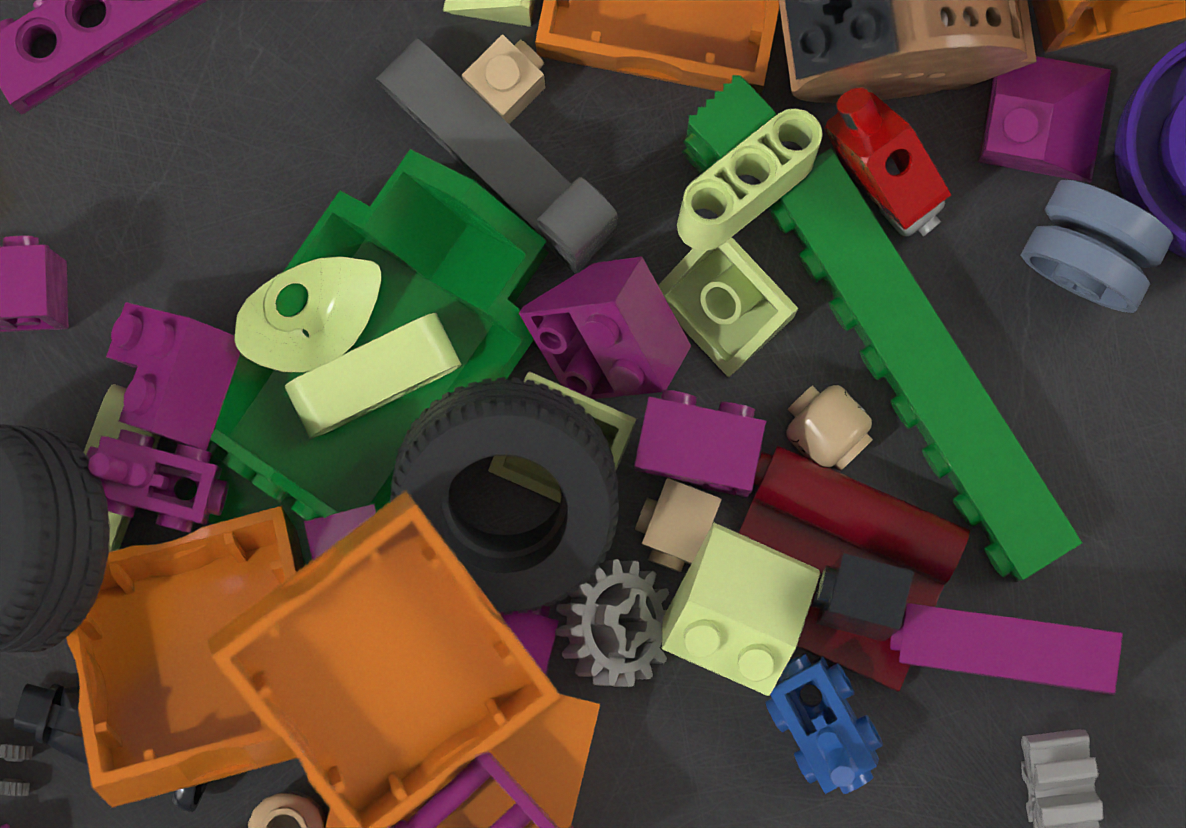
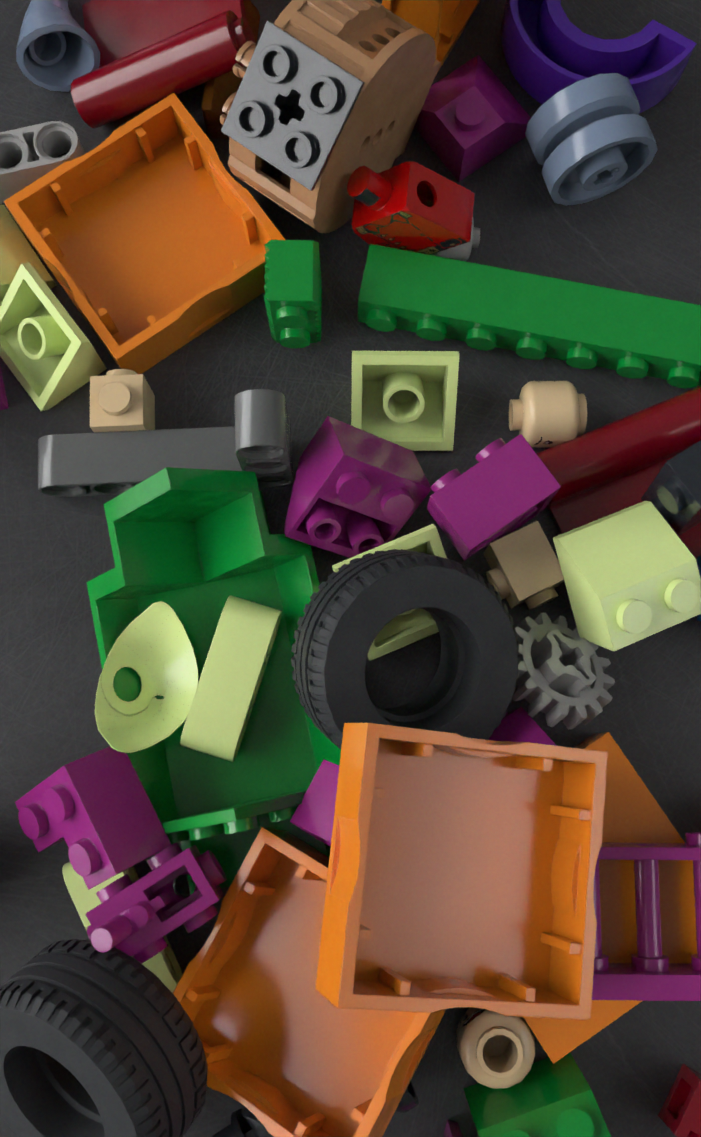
camera: 50 degrees left, 5 degrees down
(757, 156) = (343, 300): yellowish green beam -> none

